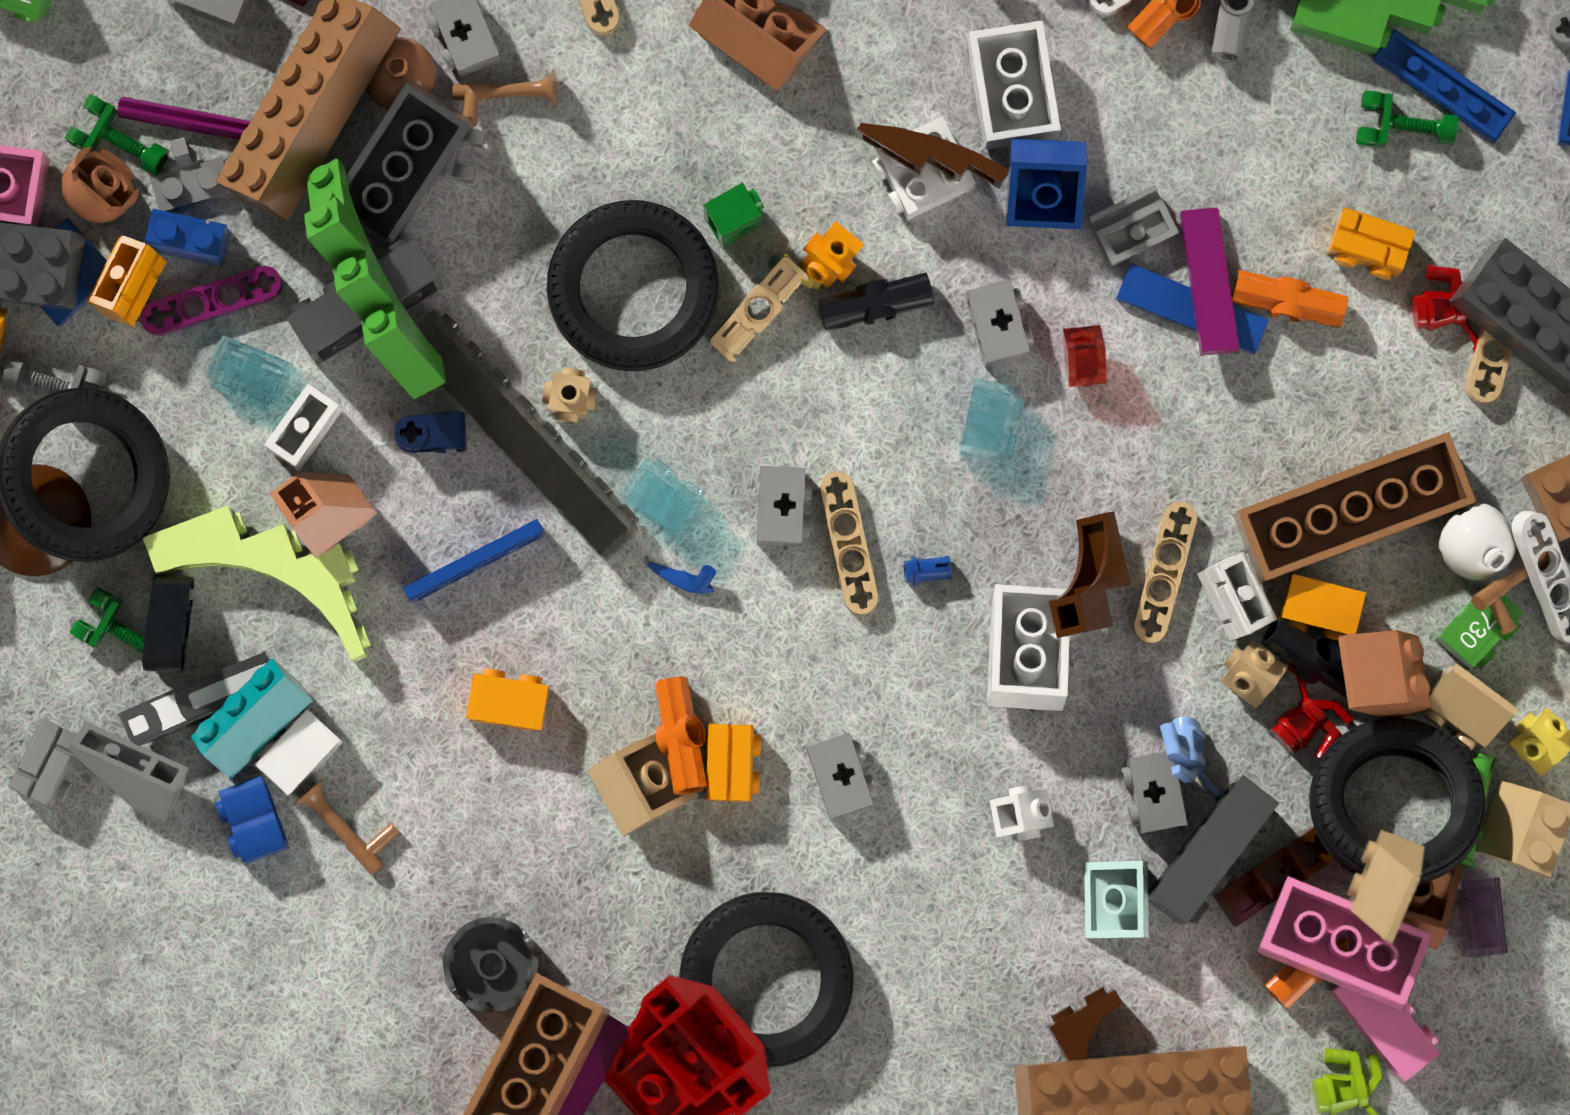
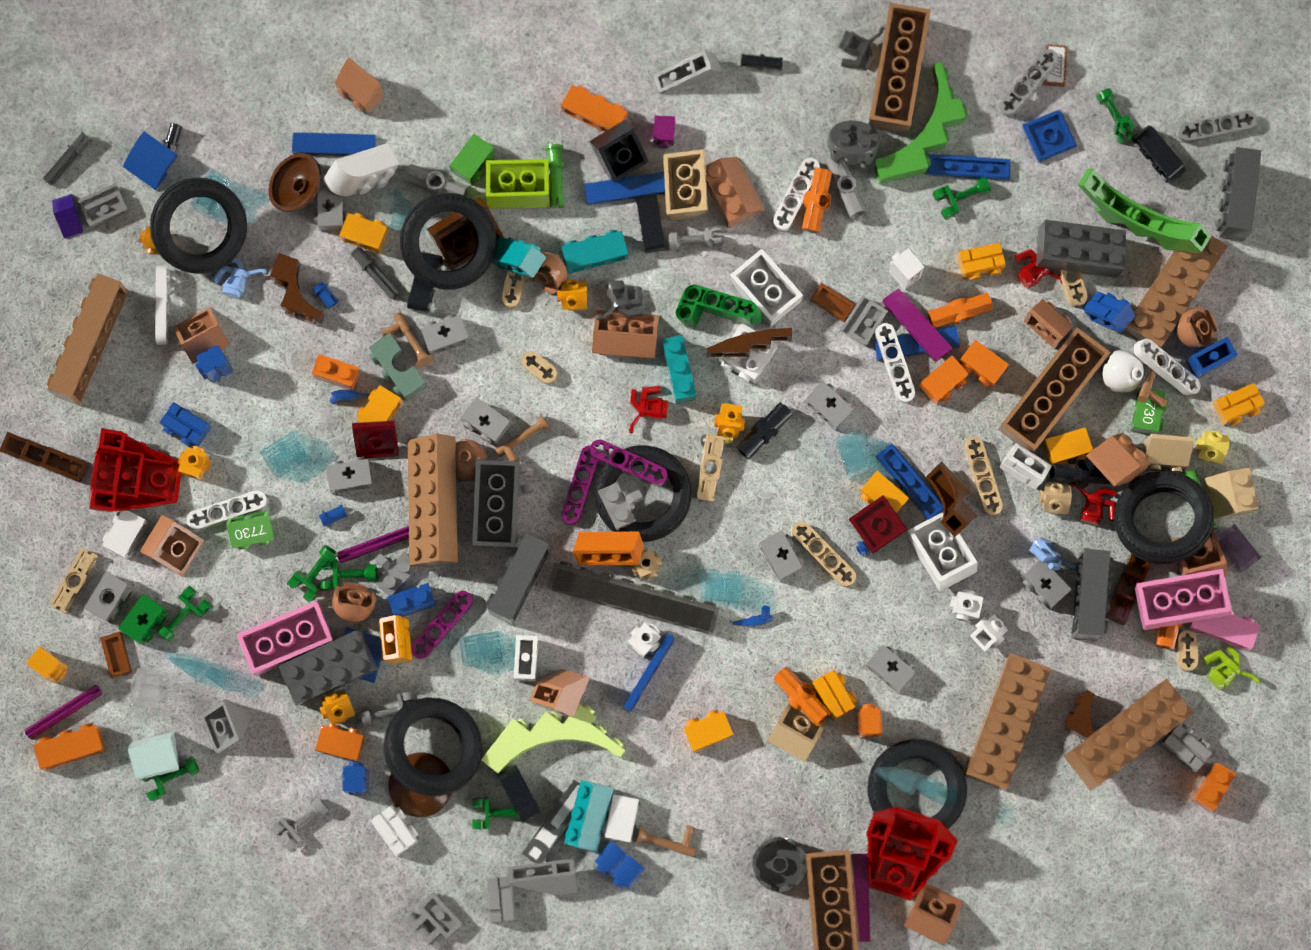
camera: 25 degrees left, 5 degrees down
(102, 90) = (327, 554): none -> green bar
(149, 37) = (332, 515): none -> blue pin
(361, 283) = (517, 569): bright green arch -> none
(438, 430) = (592, 621): dark blue piece -> none
(492, 494) = (644, 647): none -> white brick
(527, 337) = (608, 548): none -> orange brick
(543, 211) = (577, 484): none -> magenta beam
(583, 281) = (619, 504): none -> light grey hinge
(639, 223) = (630, 459): none -> magenta beam
(724, 162) = (650, 408): none -> red piece
(734, 214) = (671, 429): green brick -> none
(756, 835) = (869, 721): none -> orange brick
(758, 961) = (909, 781): none -> clear light blue slope
(804, 130) = (679, 369): none -> teal brick
(924, 74) = (720, 308): none -> green beam
(956, 548) = (878, 524): none -> dark red tile
(965, 963) = (1007, 722): none -> medium nougat brick
(993, 509) = (879, 486): none -> light orange brick
(1028, 753) = (974, 605): none -> white brick
(1046, 183) = (811, 325): blue brick -> none
(1048, 513) = (910, 482): none -> blue tile
(1084, 356) = (880, 395): clear red brick -> none
(1105, 170) = (832, 302): none -> dark orange tile
(1116, 899) = (1060, 646): light aqua slope -> none
(1135, 317) = (892, 363): none -> white beam
(1196, 391) = (944, 380): none -> orange brick
(1245, 184) = (906, 268): none -> white brick
(1272, 402) = (983, 364): none -> orange brick
(1314, 1029) = (1192, 649): none -> tan beam
(1386, 883) = (1187, 557): tan slope -> none
(1413, 399) = (1048, 323): none -> nougat slope
(1516, 439) = (1109, 311): none -> blue brick

